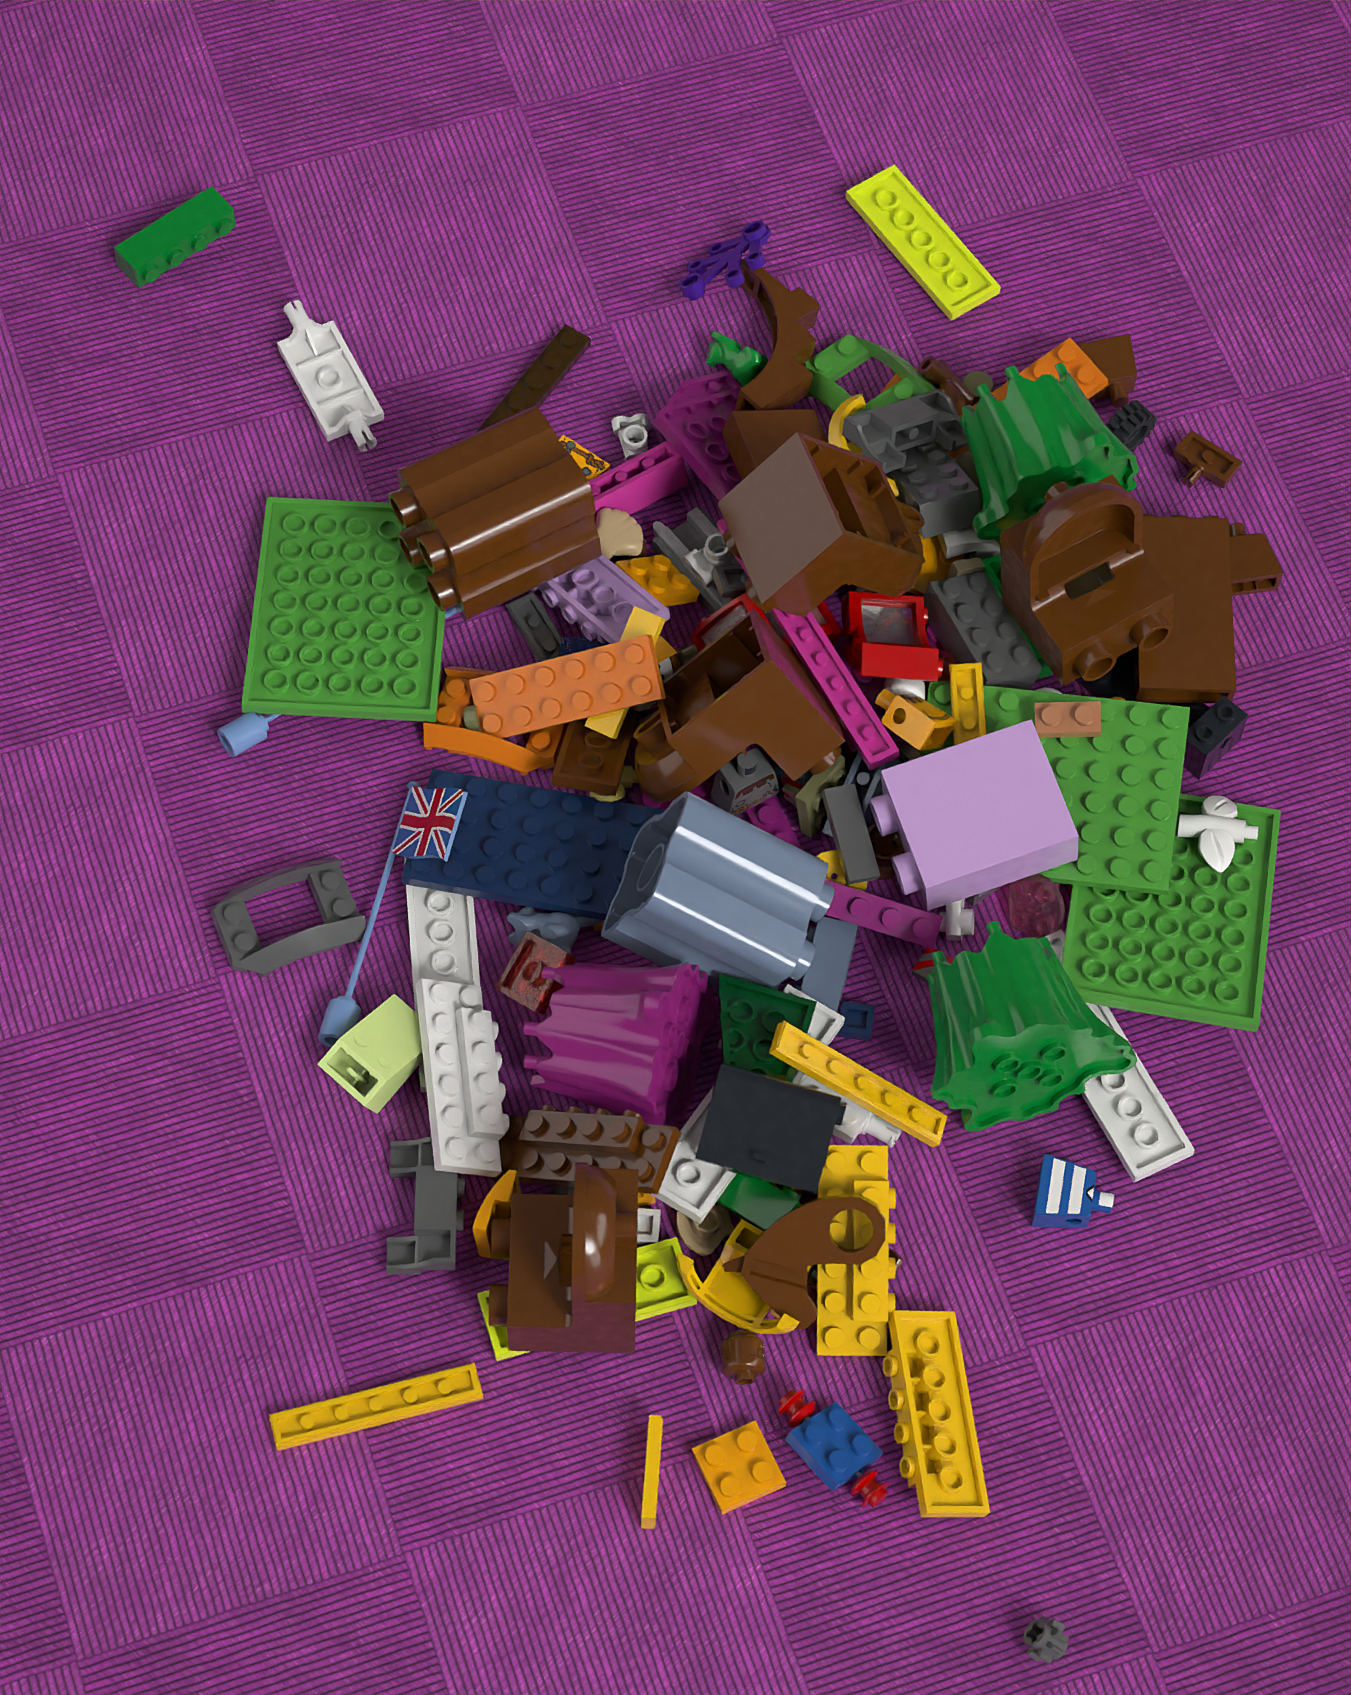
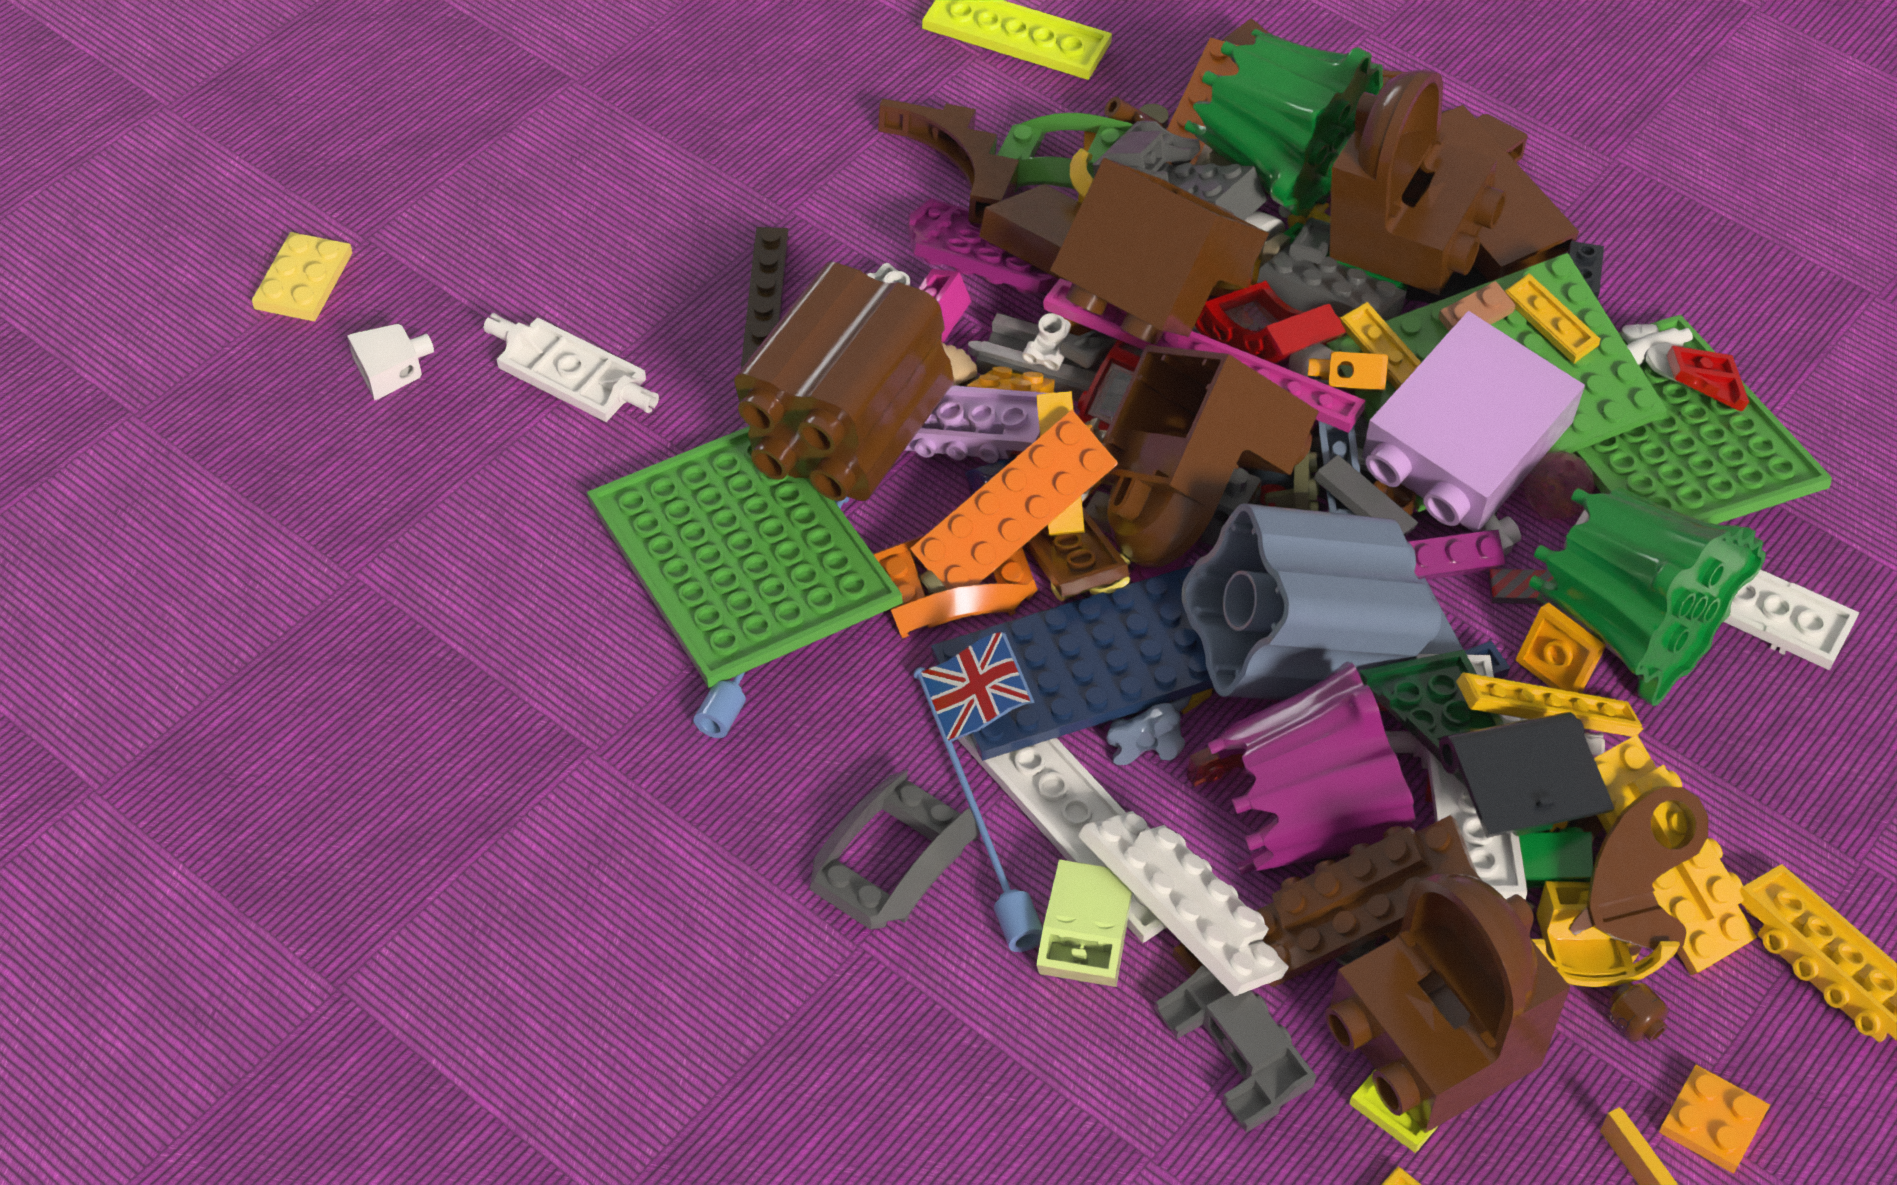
camera: 30 degrees left, 10 degrees down
(175, 237) = (328, 318): green brick -> none
(180, 181) = (302, 276): none -> light yellow plate
(196, 297) = (388, 357): none -> white torso
(496, 1205) = (1318, 1020): light orange slope -> none
(523, 974) = (1174, 771): clear red plate -> none
(535, 626) = (927, 484): dark grey tile -> none
(743, 363) = (943, 184): green animal -> none
(753, 238) = (874, 82): dark purple plant -> none
(834, 1447) = (1786, 1045): blue plate -> none
(914, 1045) = (1560, 651): none -> light orange plate
(986, 583) = (1312, 241): none -> dark grey tile
(1067, 1195) = (1784, 710): blue torso -> none
(1125, 759) = (1552, 318): none -> yellow tile
(1237, 878) = (1709, 374): none -> red wing

